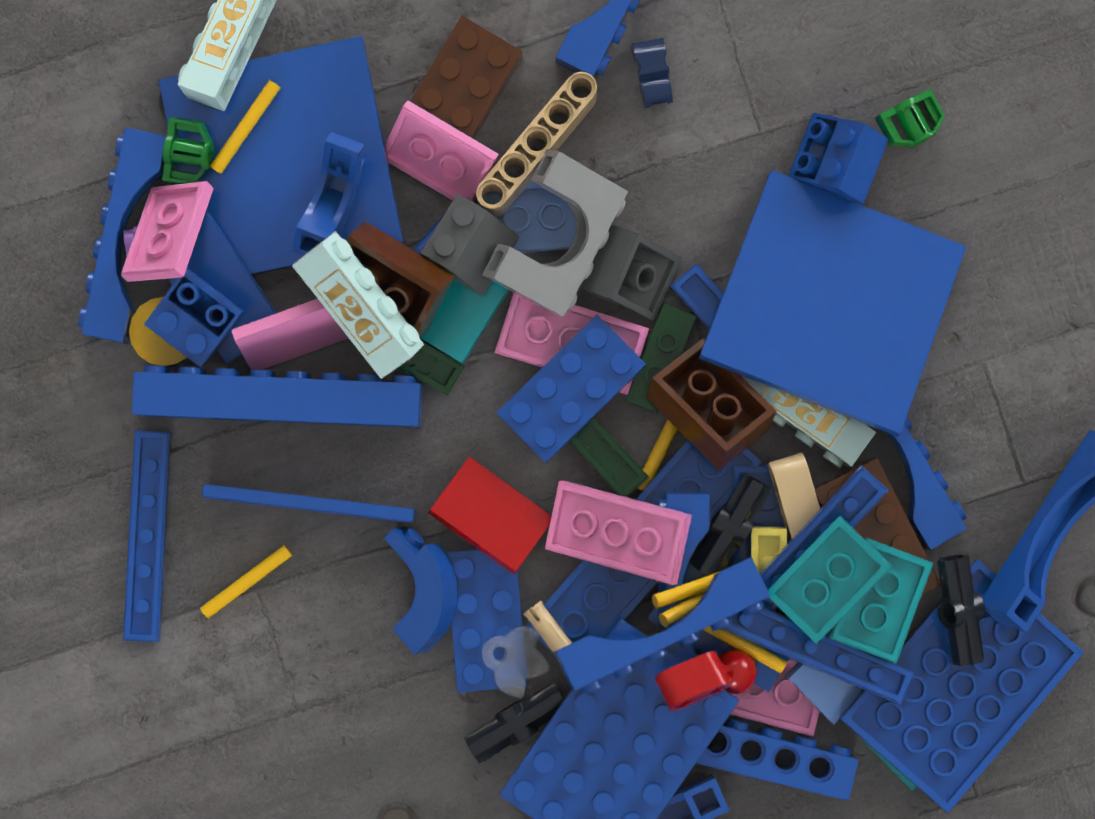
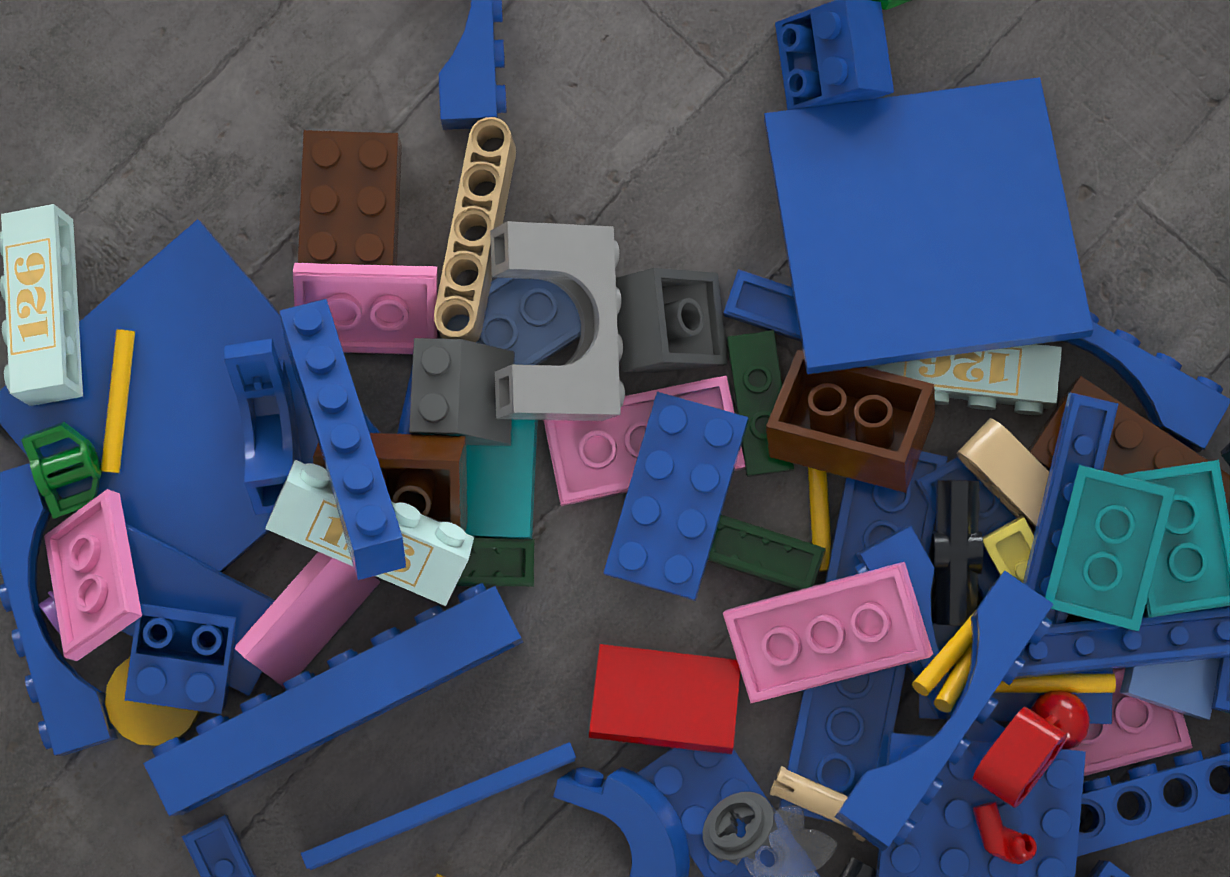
camera: 30 degrees left, 5 degrees down
(373, 235) = (344, 440): none -> blue arch
(482, 615) = (721, 826): none -> dark grey gear
(651, 726) = (1000, 840): none -> red arm
(653, 72) = (565, 78): dark blue leg -> none

